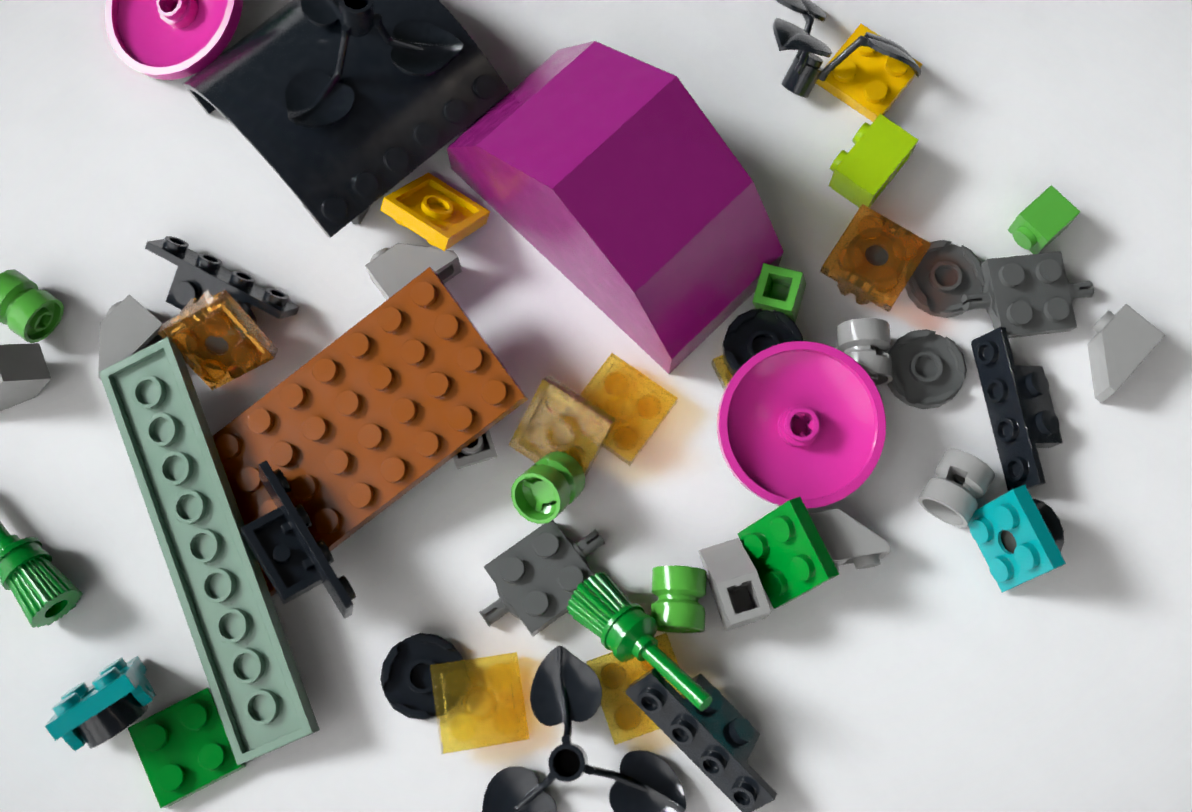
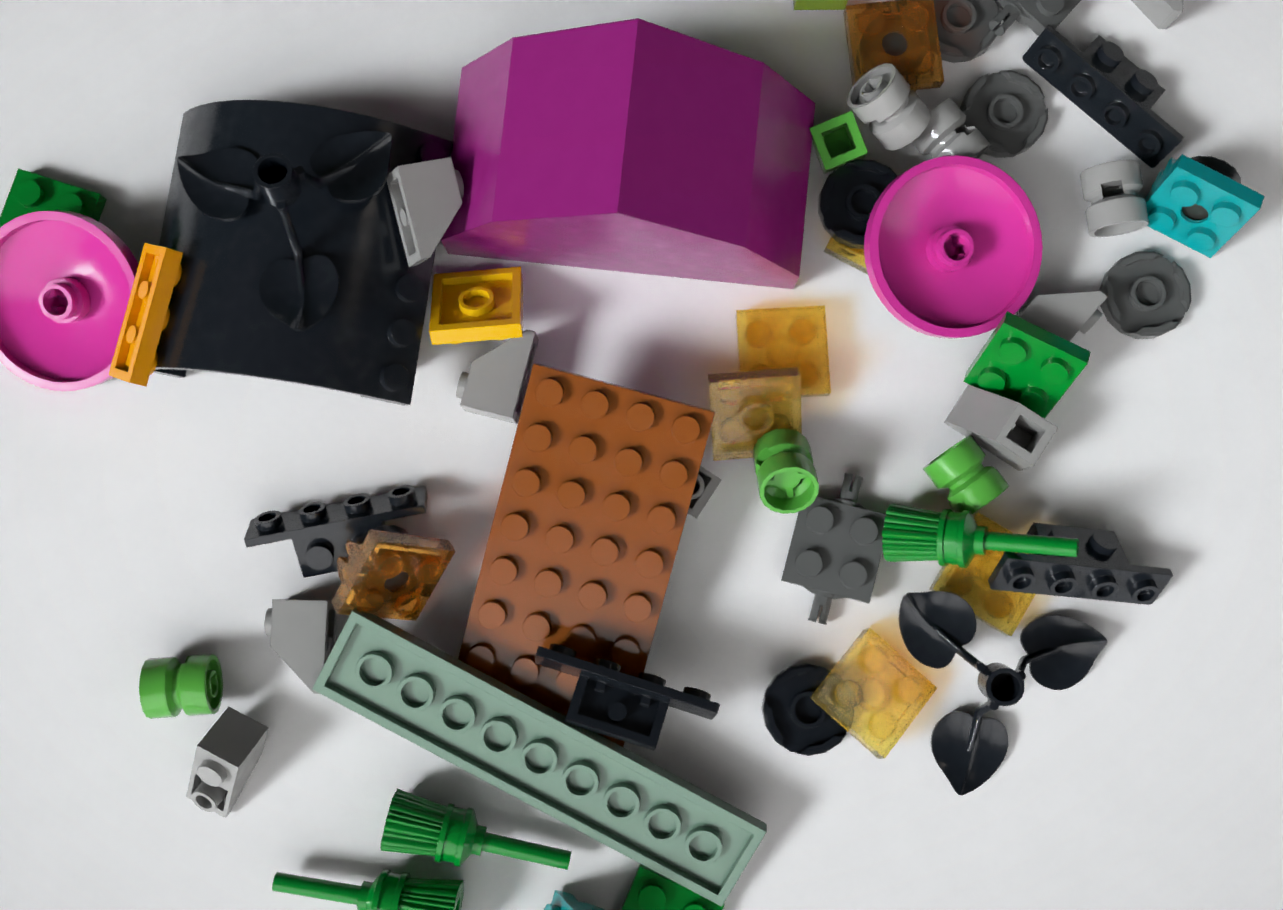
camera: 40 degrees left, 10 degrees up
(102, 552) = (453, 834): none -> green piece
(214, 48) = (146, 314): none -> light orange plate
(451, 109) = (424, 204): none -> light grey slope
(833, 291) = (889, 106): none -> light grey wheel
(928, 580) = (1145, 295): none -> dark grey tile

